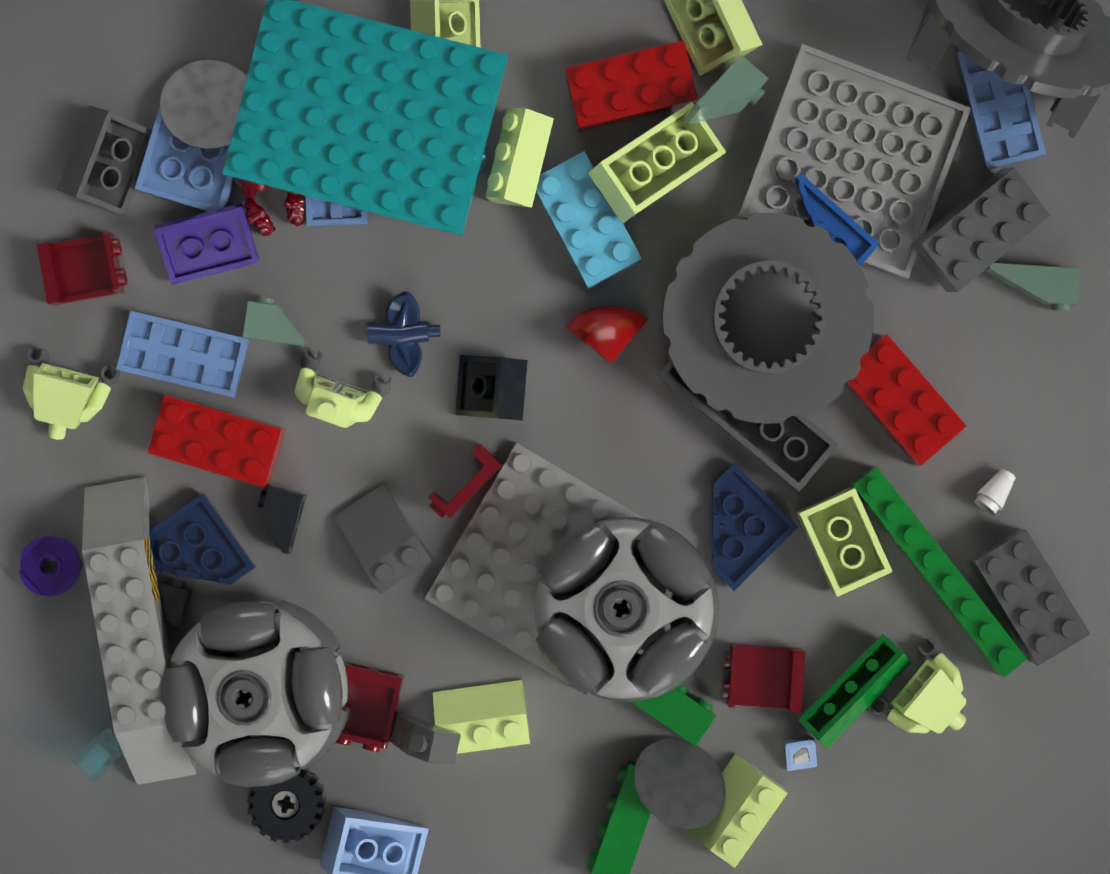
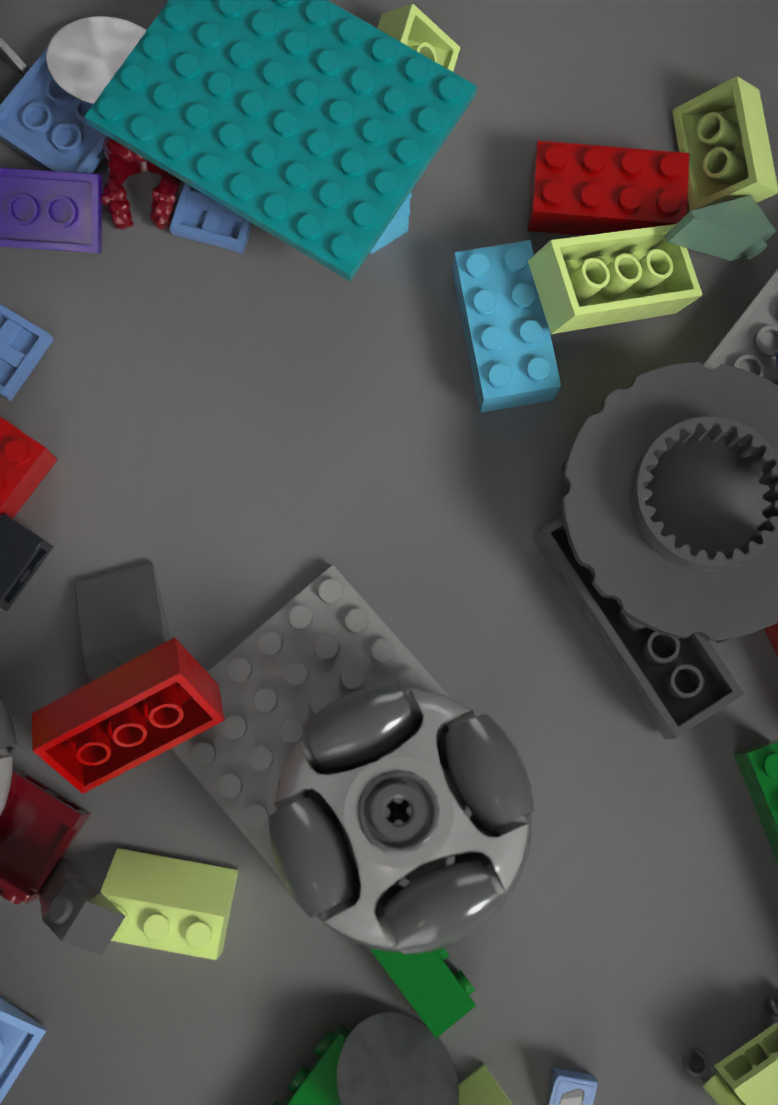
camera: 15 degrees right, 10 degrees down
(270, 323) = (83, 326): sand green slope -> none
(336, 400) = (127, 438): yellowish green torso -> none
(403, 333) = (239, 388): dark blue plant -> none
(412, 601) = (127, 716): none -> red brick
(450, 508) = (255, 597): dark red panel -> none
(491, 387) = (325, 486): black slope -> none
(519, 157) = (448, 220): yellowish green slope -> none
(607, 328) = (489, 461): red brick -> none
(744, 526) = (586, 763): dark blue plate -> none
(764, 677) = (555, 973): dark red panel -> none
(844, 542) = (713, 826): yellowish green brick -> none
(855, 691) = (671, 1033): green brick -> none

